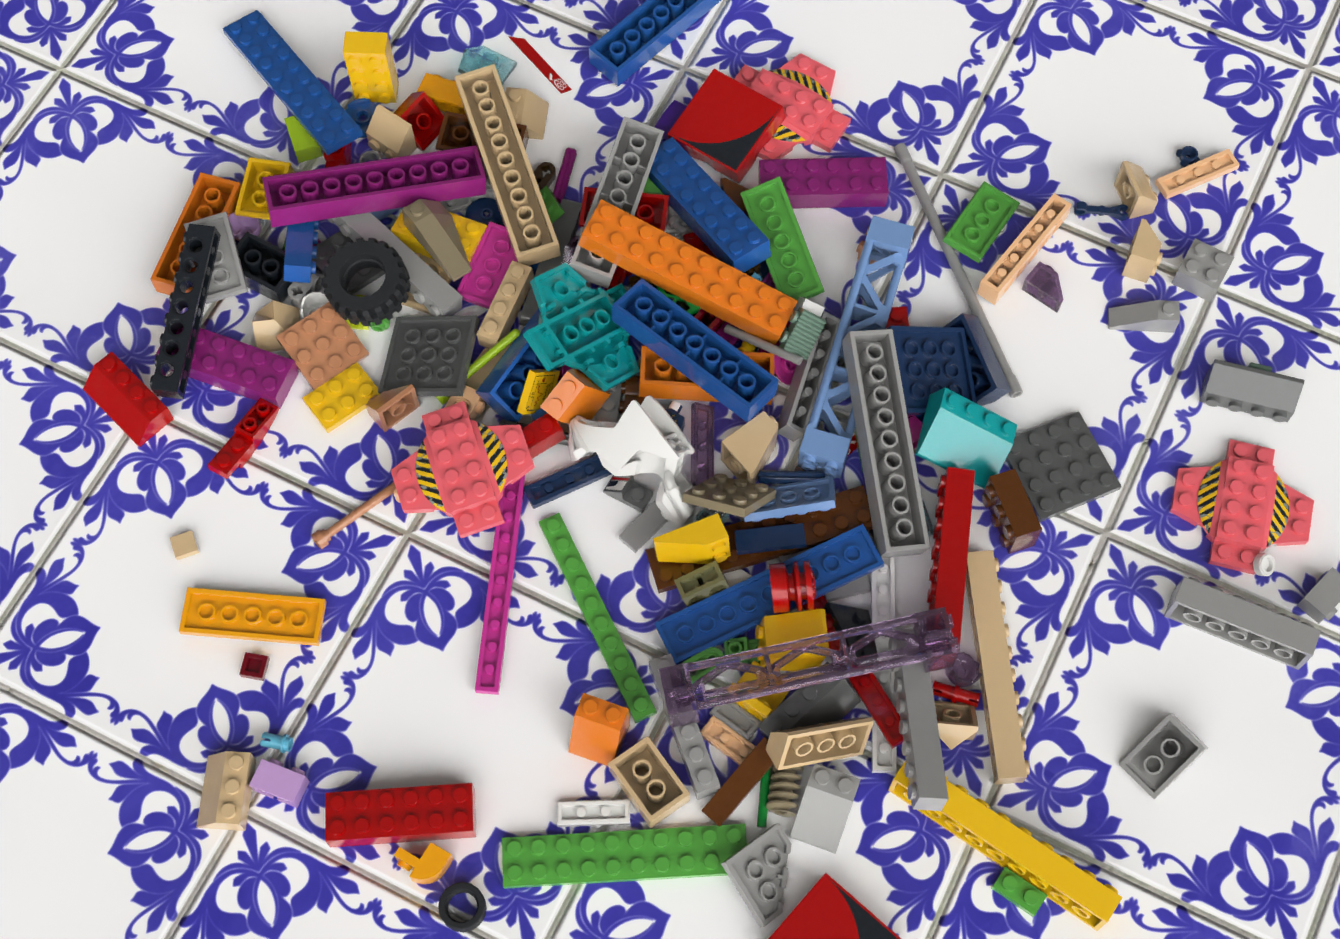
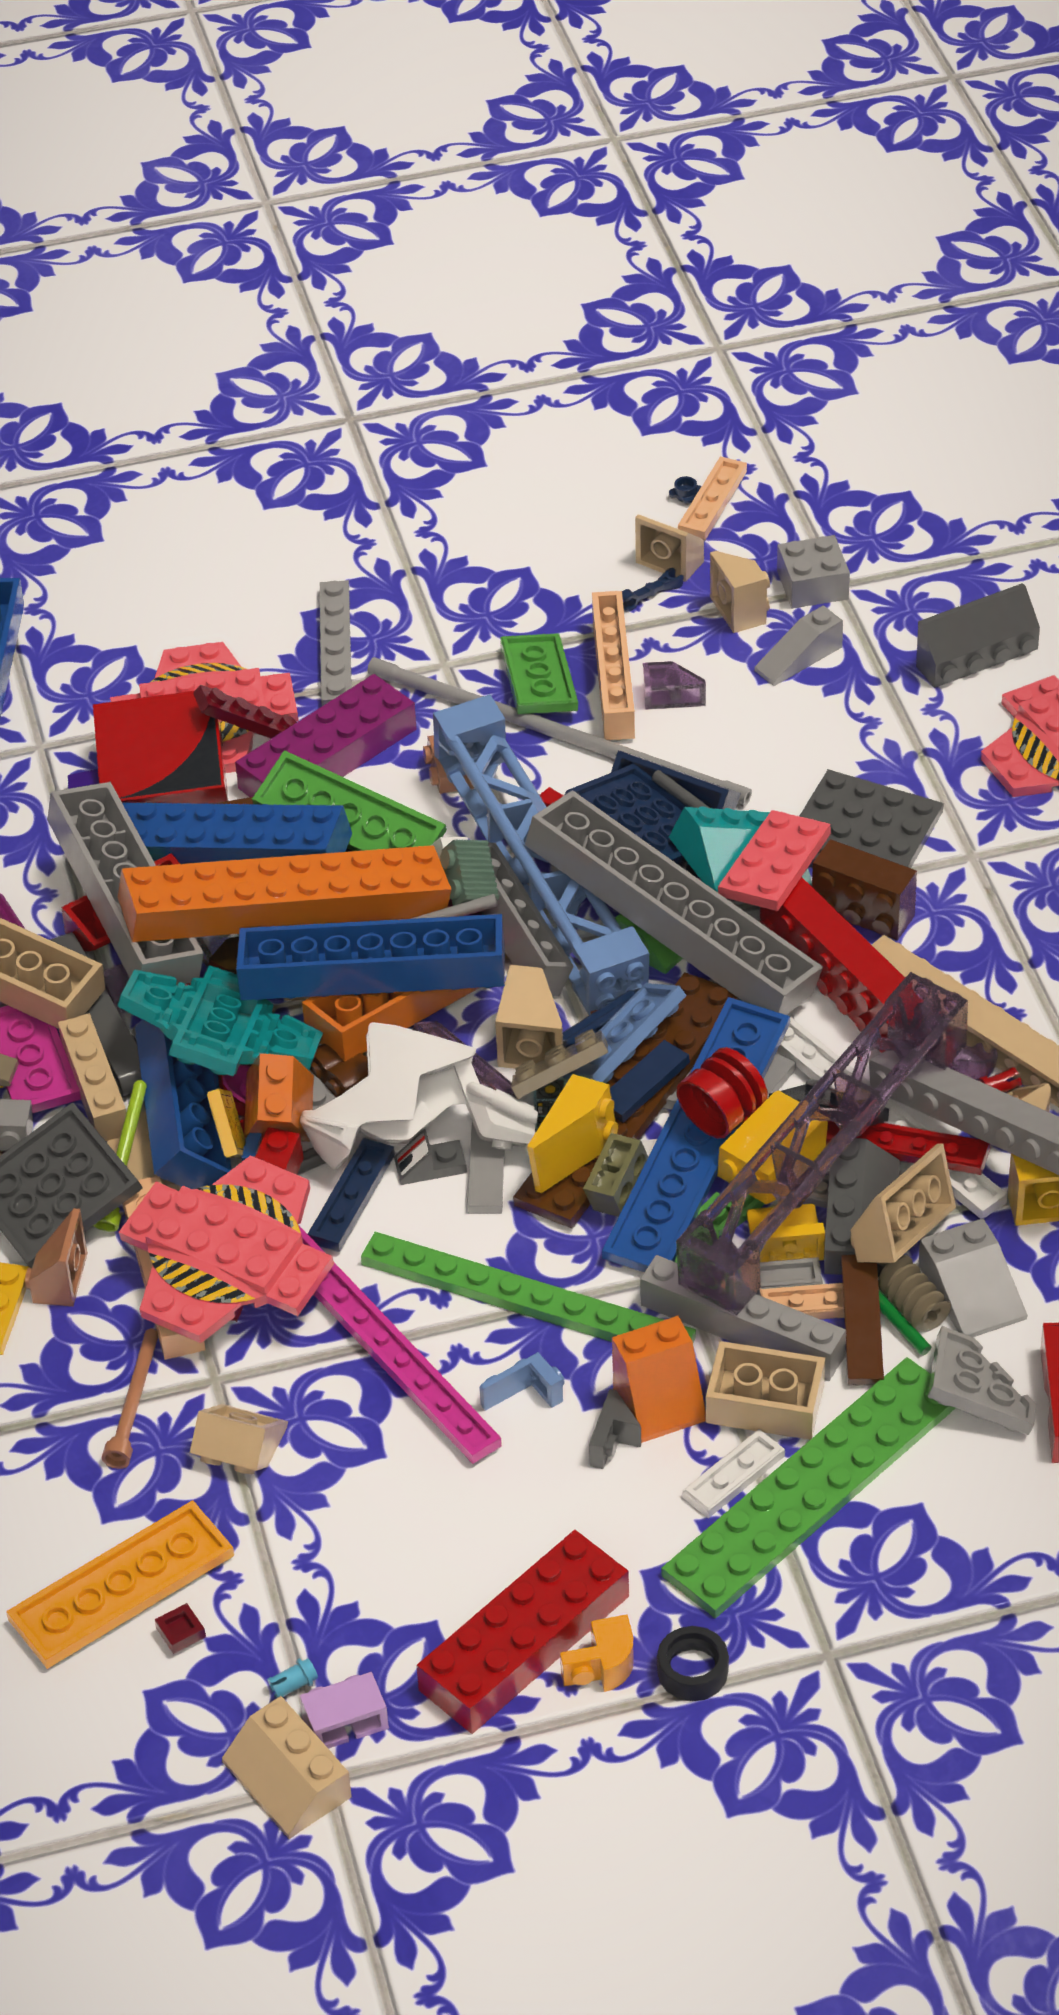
camera: 40 degrees left, 20 degrees down
(380, 579) = (236, 1437): none -> tan slope
(547, 662) = (526, 1372): none -> medium blue bracket
(558, 731) = (614, 1426): none -> dark grey slope
(787, 133) = (241, 713): none -> dark red plate
(895, 115) = (335, 639): none -> light grey plate
(968, 458) = (774, 860): none -> coral plate
(972, 373) = (676, 790): none -> dark grey bar

